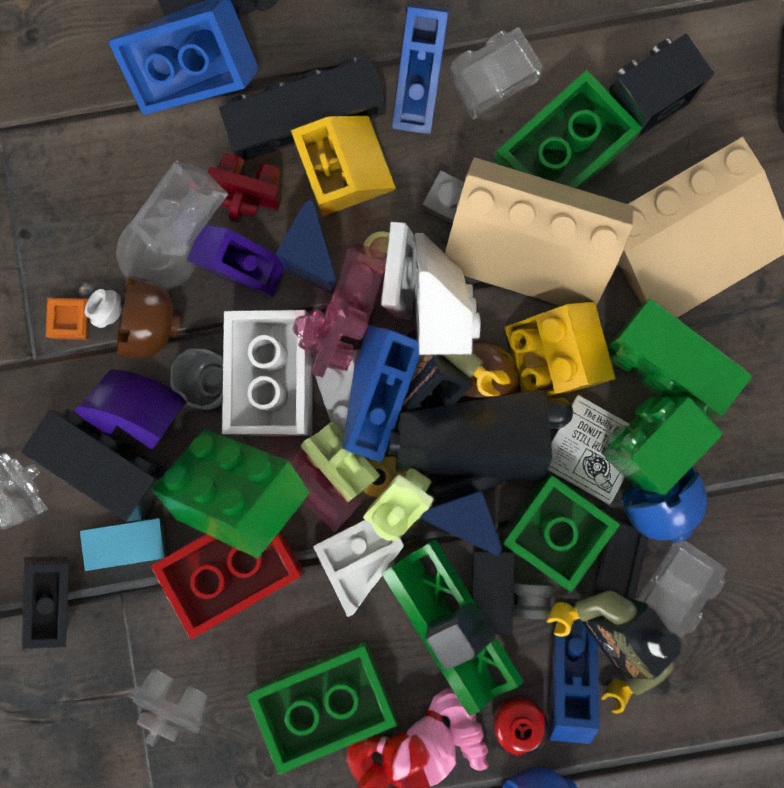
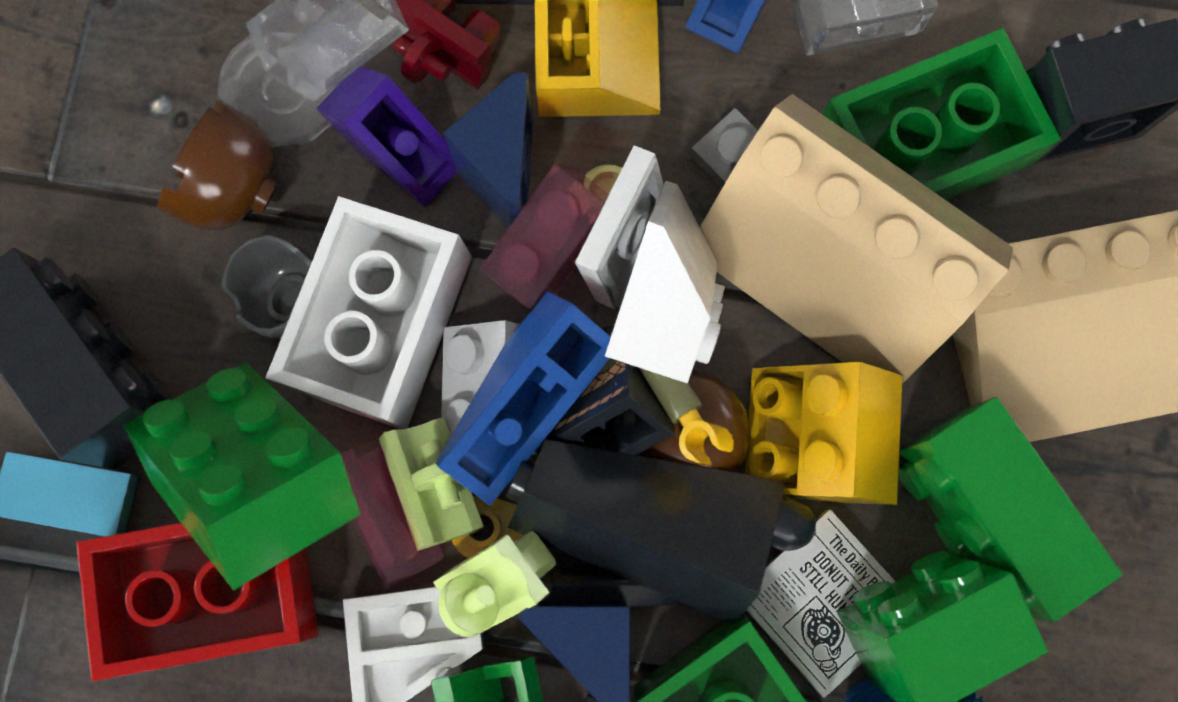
camera: 10 degrees right, 5 degrees down
(67, 319) = (117, 137): orange tile -> none
(103, 307) = (168, 135): white plate -> none
(132, 403) = (150, 288): dark purple slope -> none
(324, 335) = (473, 280): clear pink hips -> none

